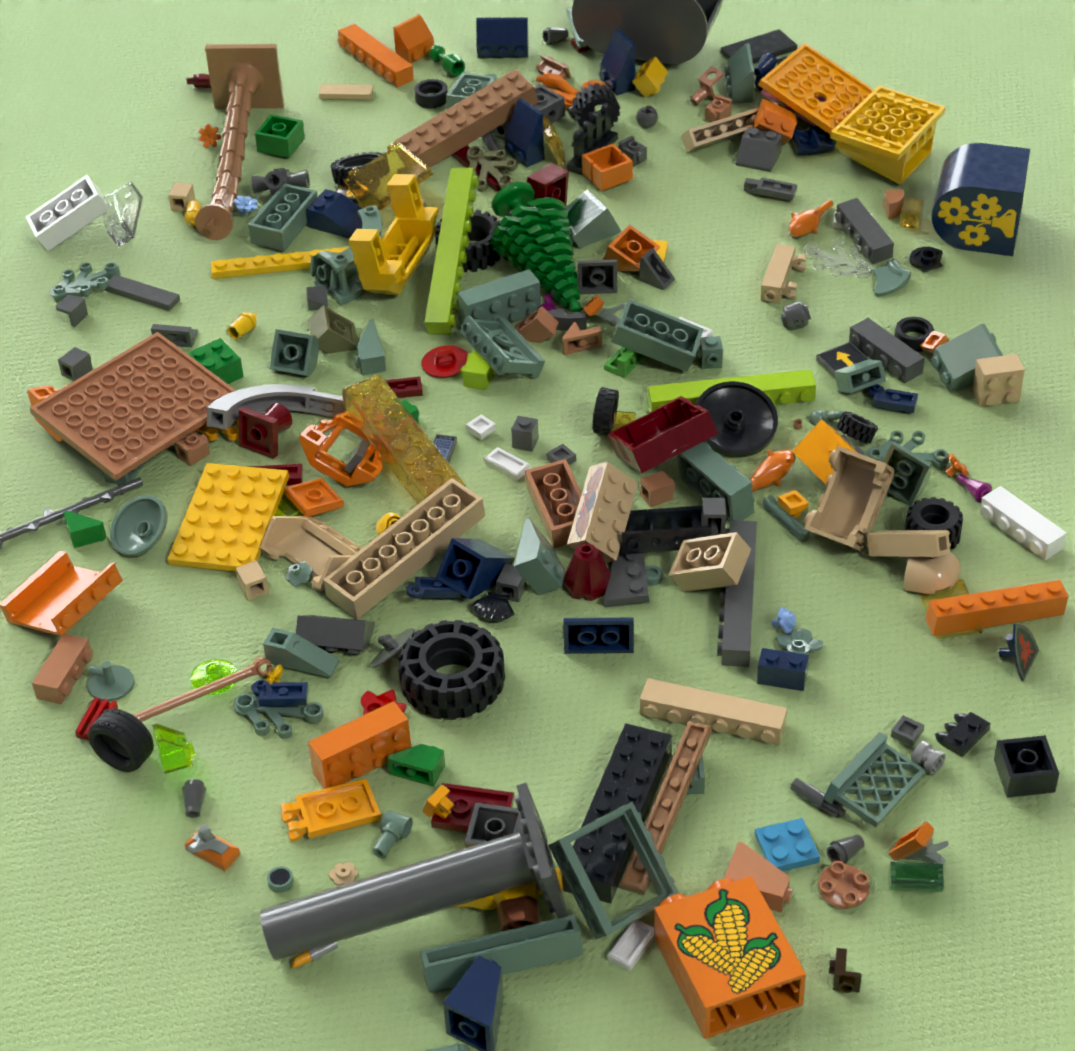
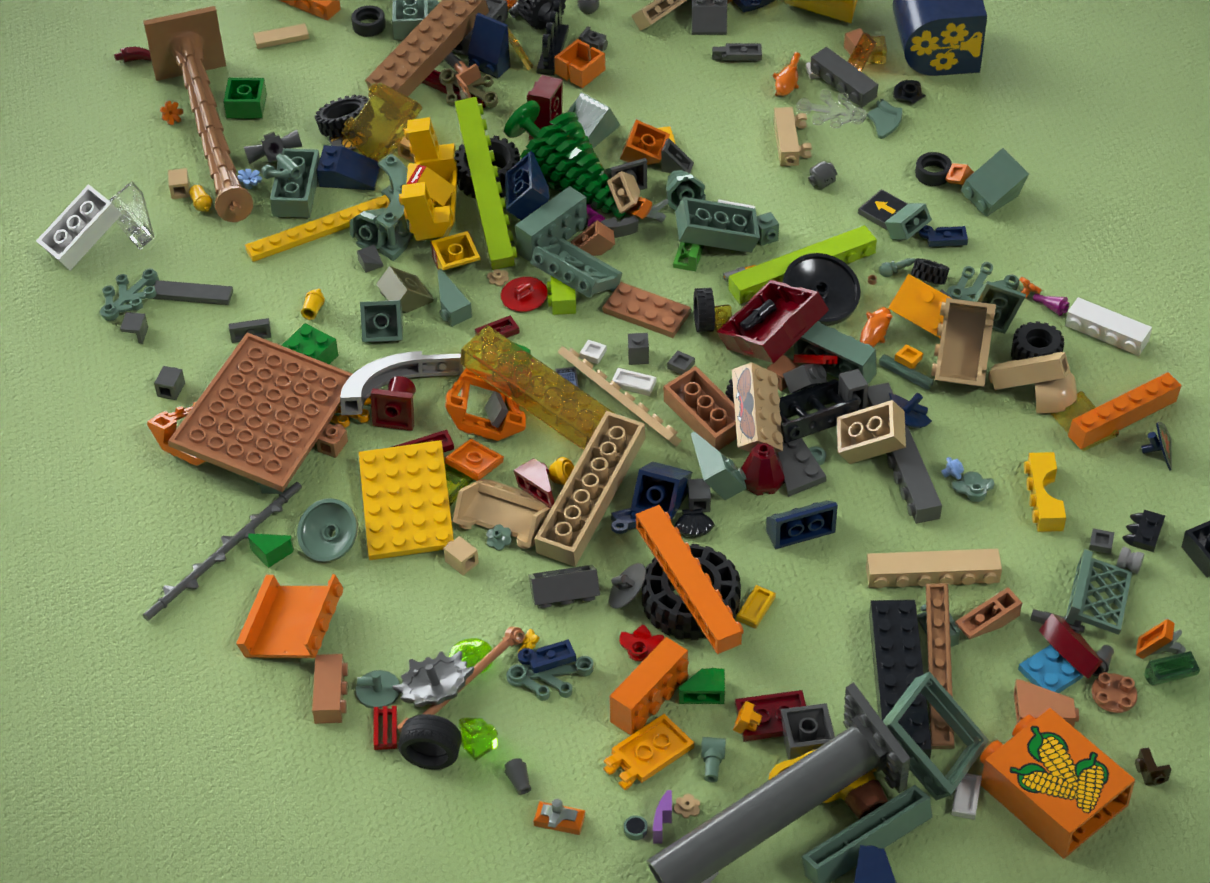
camera: 20 degrees left, 5 degrees up
(162, 686) = (434, 679): none -> dark grey piece
(279, 200) = (290, 168): none -> sand green plant
(298, 653) = (544, 614): sand green slope -> none
(310, 873) = (662, 815): none -> medium lavender slope
(359, 528) = (534, 480): none -> slope
(394, 239) = (438, 187): none -> yellow slope
(395, 306) = (454, 251): none -> yellow slope
(430, 341) = (498, 277): none -> tan plant
(444, 653) = (689, 579): none -> orange brick
(486, 475) = (626, 399): none -> tan plate
(487, 261) = (525, 187): none -> dark blue slope
(490, 155) = (466, 76): none -> nougat bracket
(514, 702) = (755, 606): none -> yellow tile
(555, 401) = (646, 309): none -> nougat plate
(583, 340) = (641, 244): nougat slope -> none
(584, 285) = (624, 190): none -> tan slope
(648, 294) = (681, 185): none -> sand green cone
(655, 427) = (758, 315): none -> black axle
(670, 494) = (805, 377): none -> dark grey brick
(690, 480) = (815, 359): none -> red tile
(745, 771) = (991, 614): none -> nougat slope
(764, 555) = (914, 413): none -> dark blue shield
(782, 669) = (974, 514): dark blue brick -> none
(816, 823) = (1070, 645): none -> dark red slope
(865, 687) = (1048, 512): none -> yellow arch
(884, 347) = (917, 189): dark grey brick -> none
(892, 211) = (862, 51): none -> clear orange plate
(998, 380) = (1029, 197): tan brick -> none

